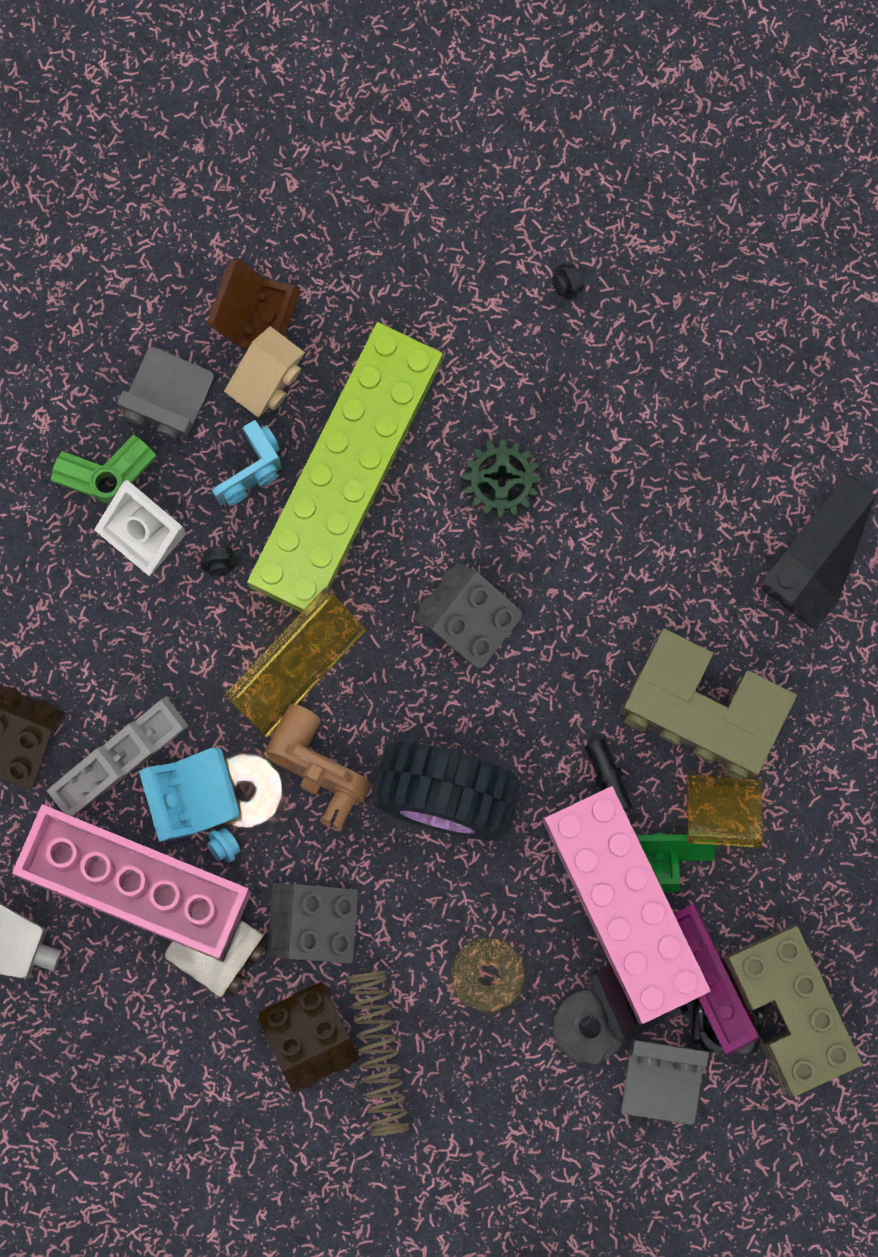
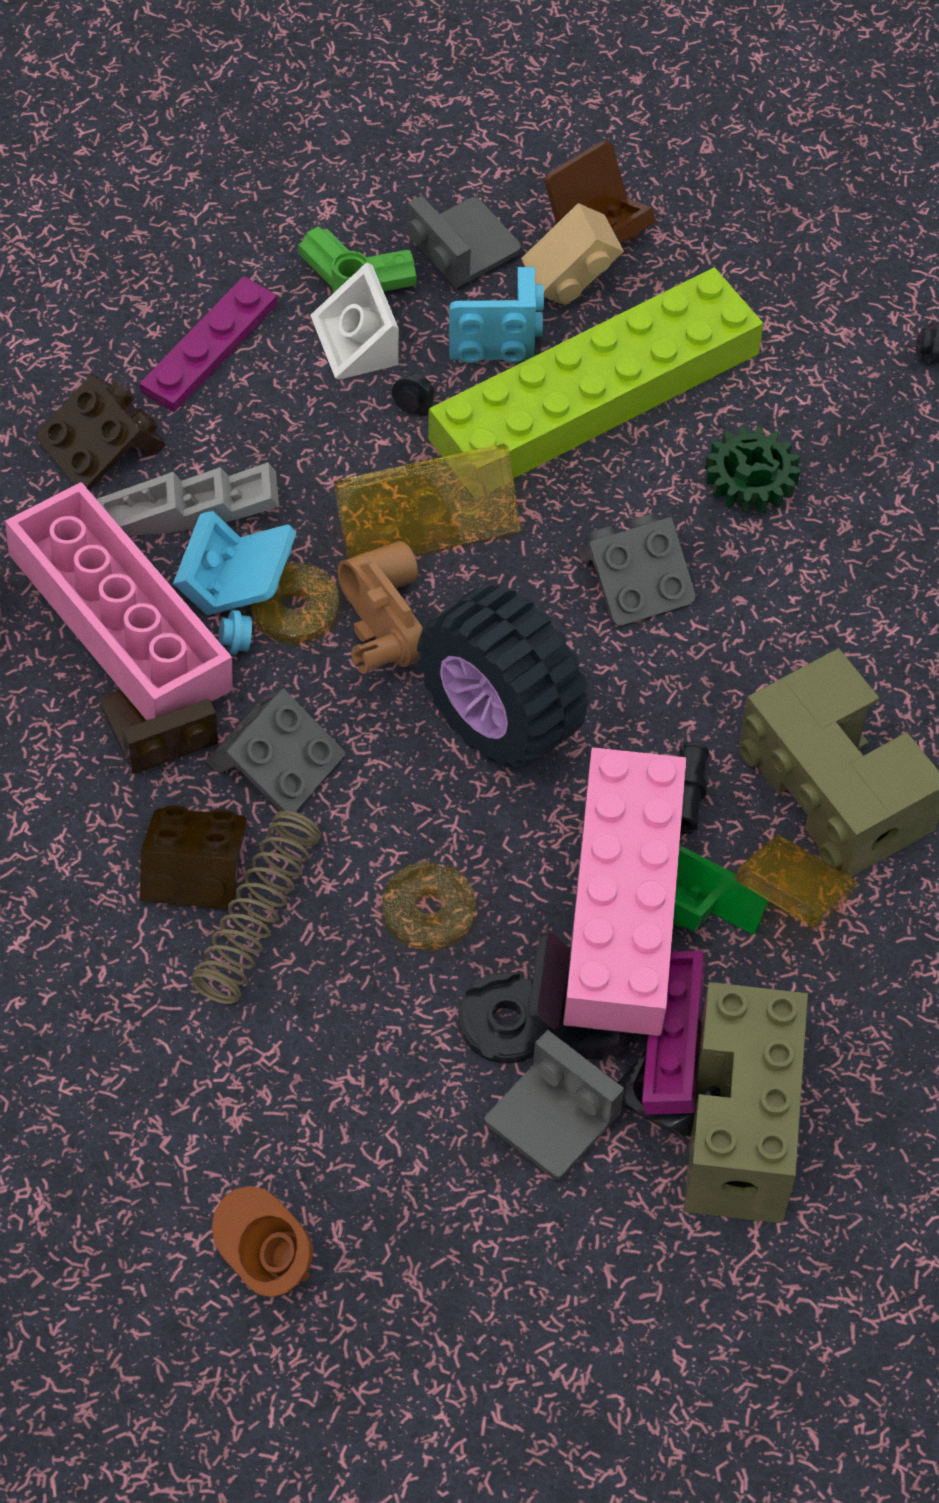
camera: 35 degrees right, 25 degrees down
(37, 603) = (208, 344): none -> magenta plate

